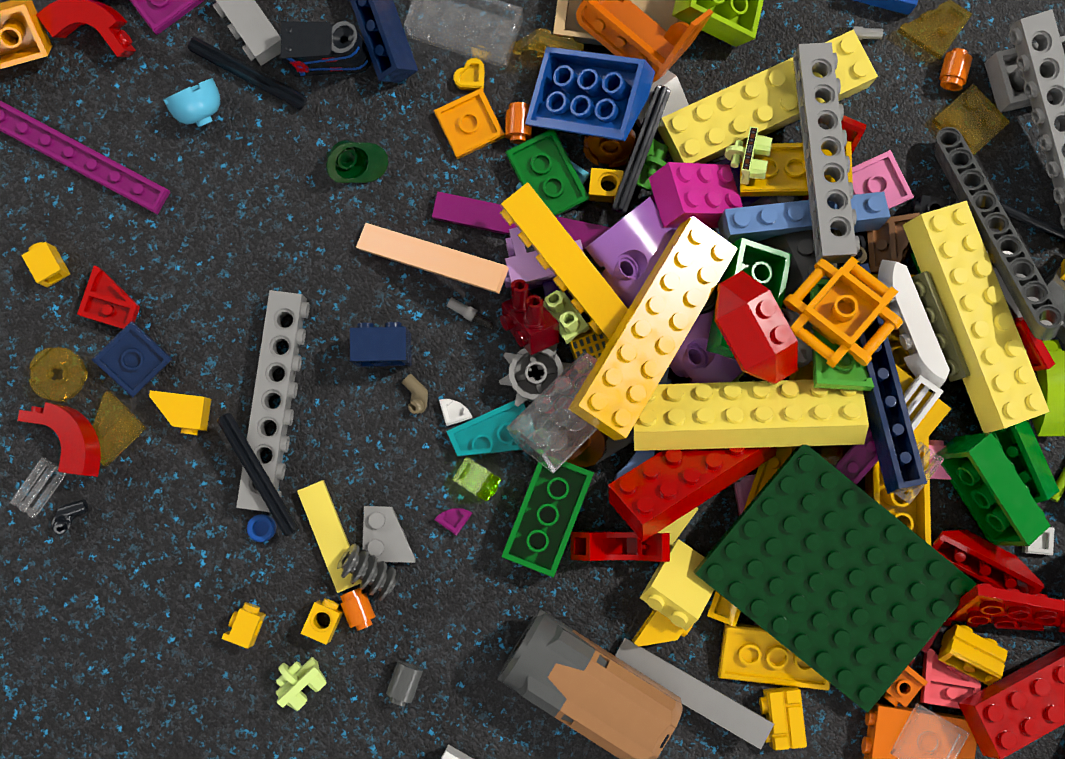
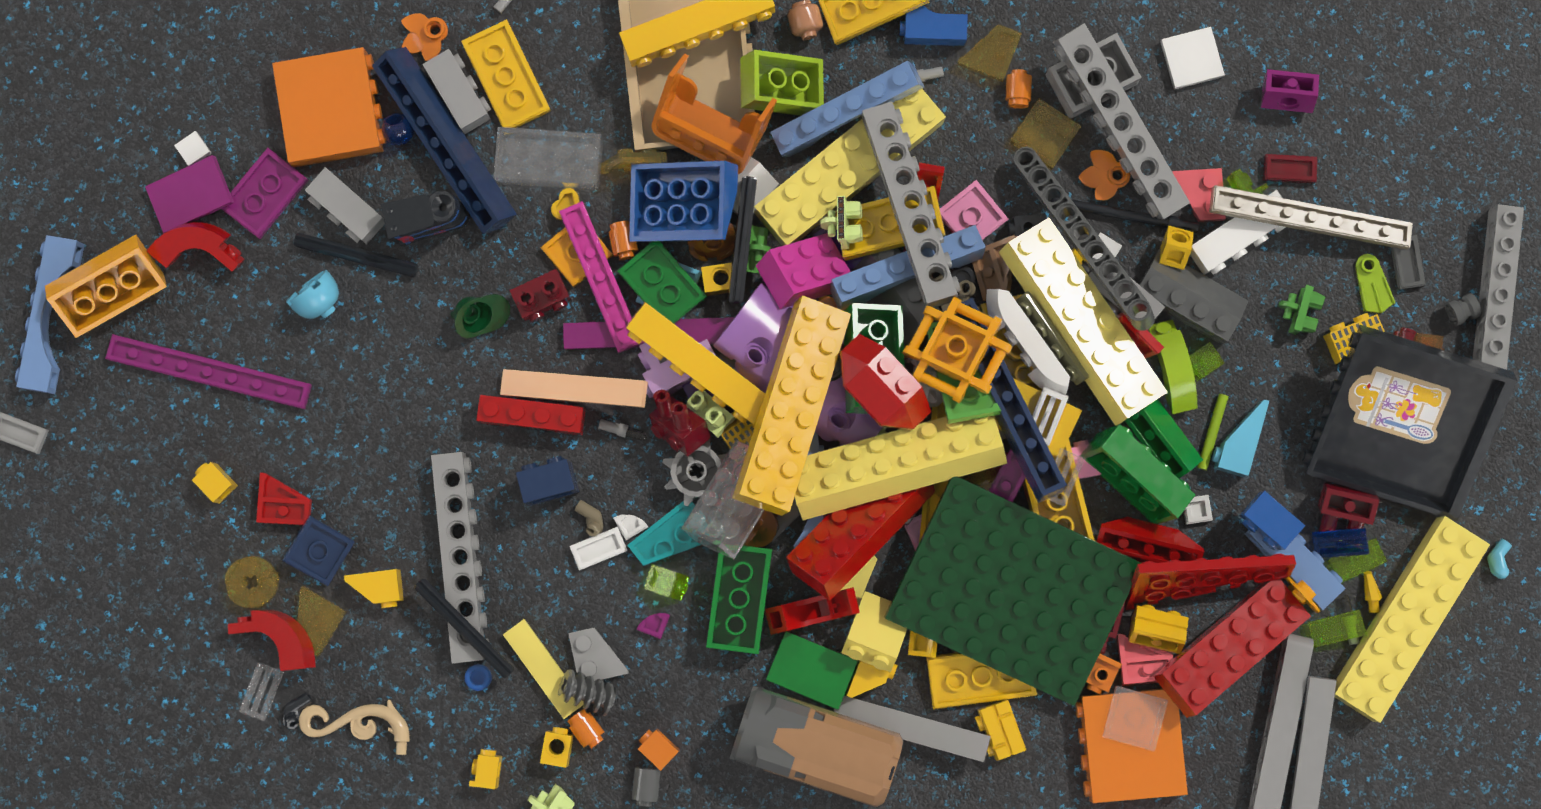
camera: 10 degrees left, 0 degrees up
(161, 542) = (355, 716): none -> tan plant
(382, 274) = (531, 414): none -> red arch
(416, 427) = (598, 548): none -> white tile
(421, 158) = (540, 296): none -> dark red brick
(425, 648) = (657, 748): none -> orange brick
(486, 151) = (599, 274): none -> dark pink tile
(604, 607) = (812, 670): none -> green tile
(738, 53) = (819, 122): none -> medium blue arch
(1018, 175) = (1101, 175): none -> orange plate

